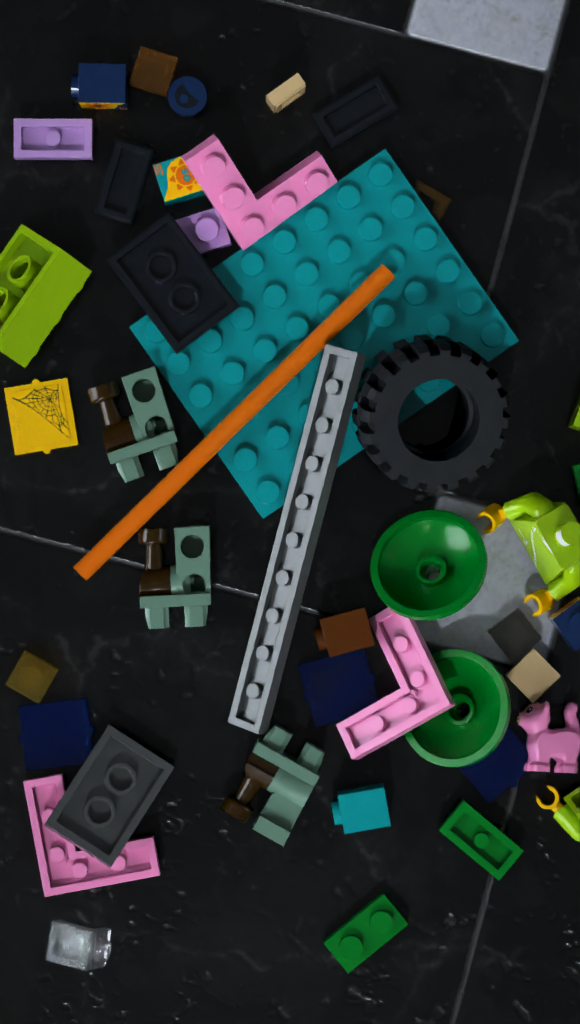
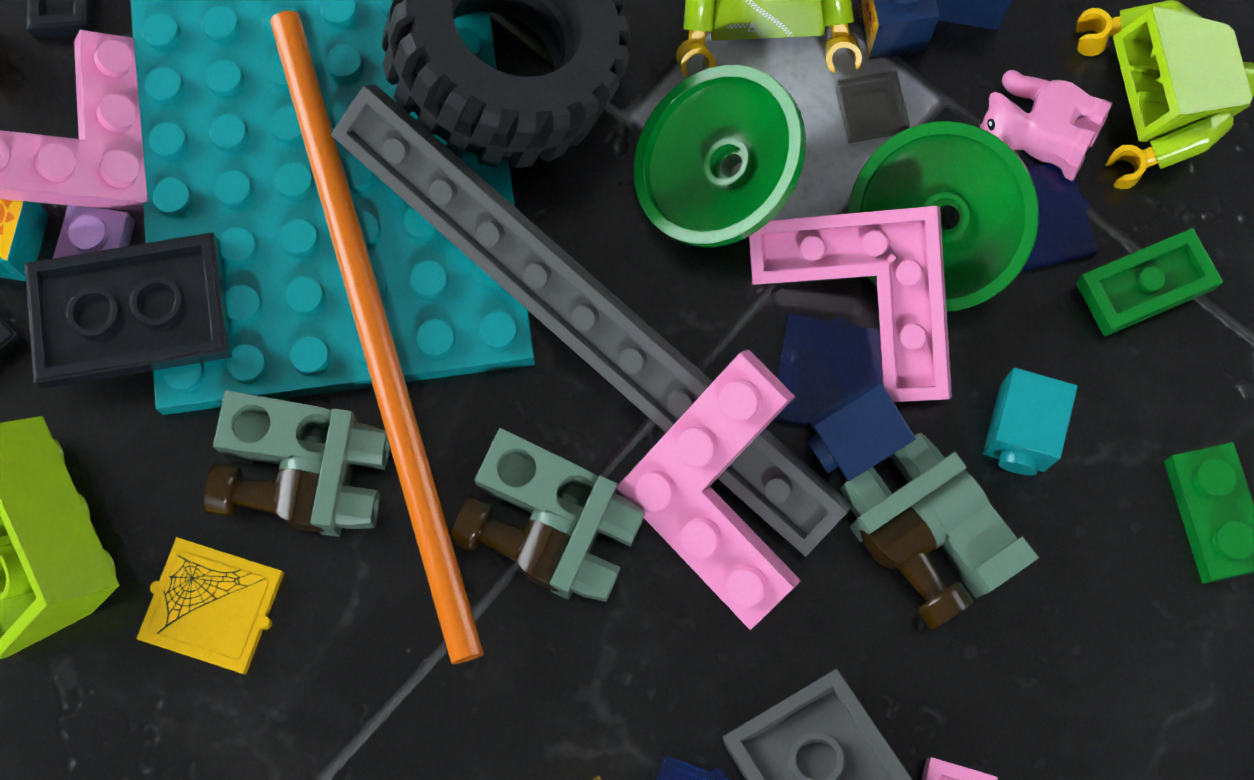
camera: 65 degrees left, 15 degrees down
(221, 641) = (689, 515): none -> bright pink plate
(308, 719) = (859, 431): none -> dark blue brick
(344, 632) = (756, 316): reddish brown brick -> none
(532, 675) = (940, 100): tan tile -> none

